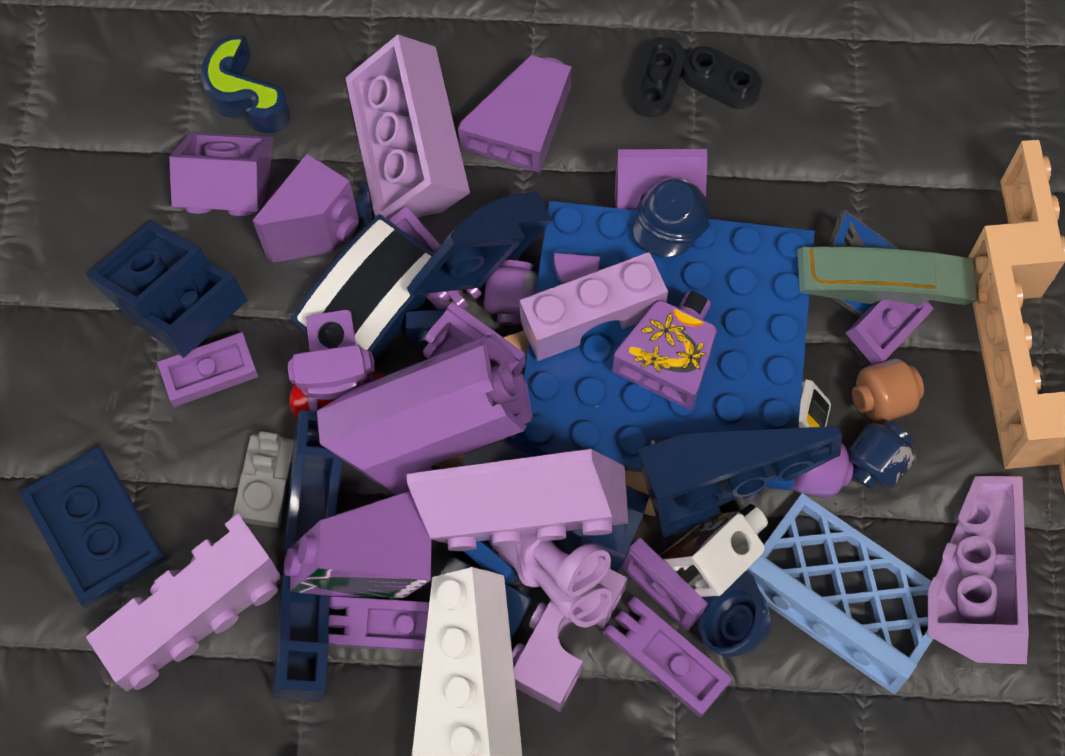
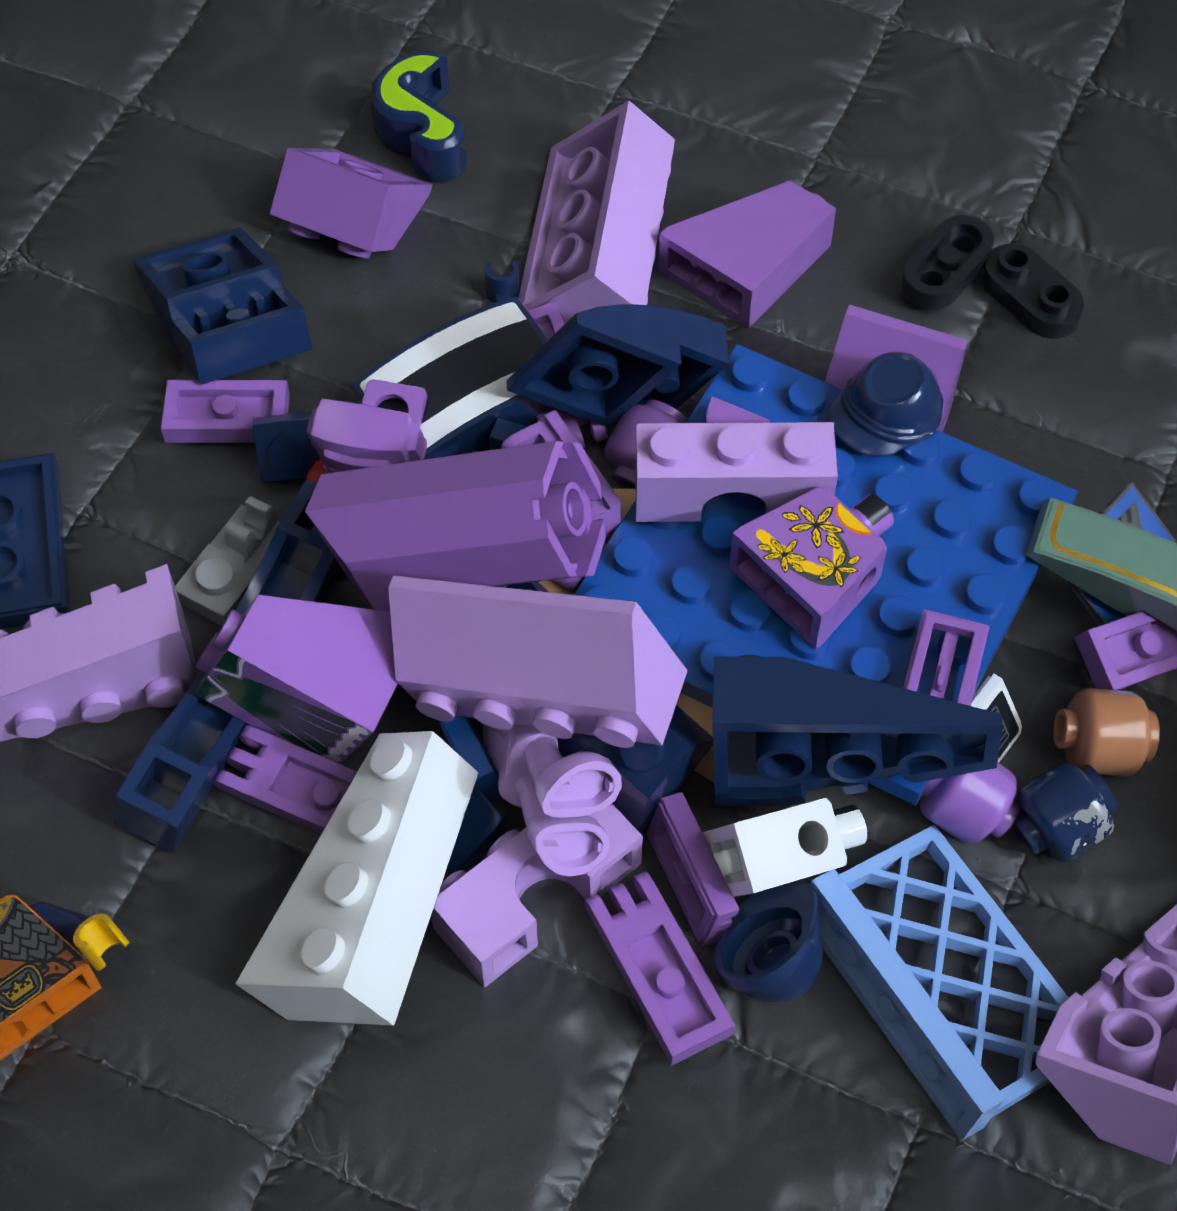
camera: 20 degrees right, 10 degrees down
(264, 381) = (283, 446): none -> dark blue plate
(307, 213) = (424, 266): medium lavender slope -> none
(761, 402) = (953, 628): none -> medium lavender tile

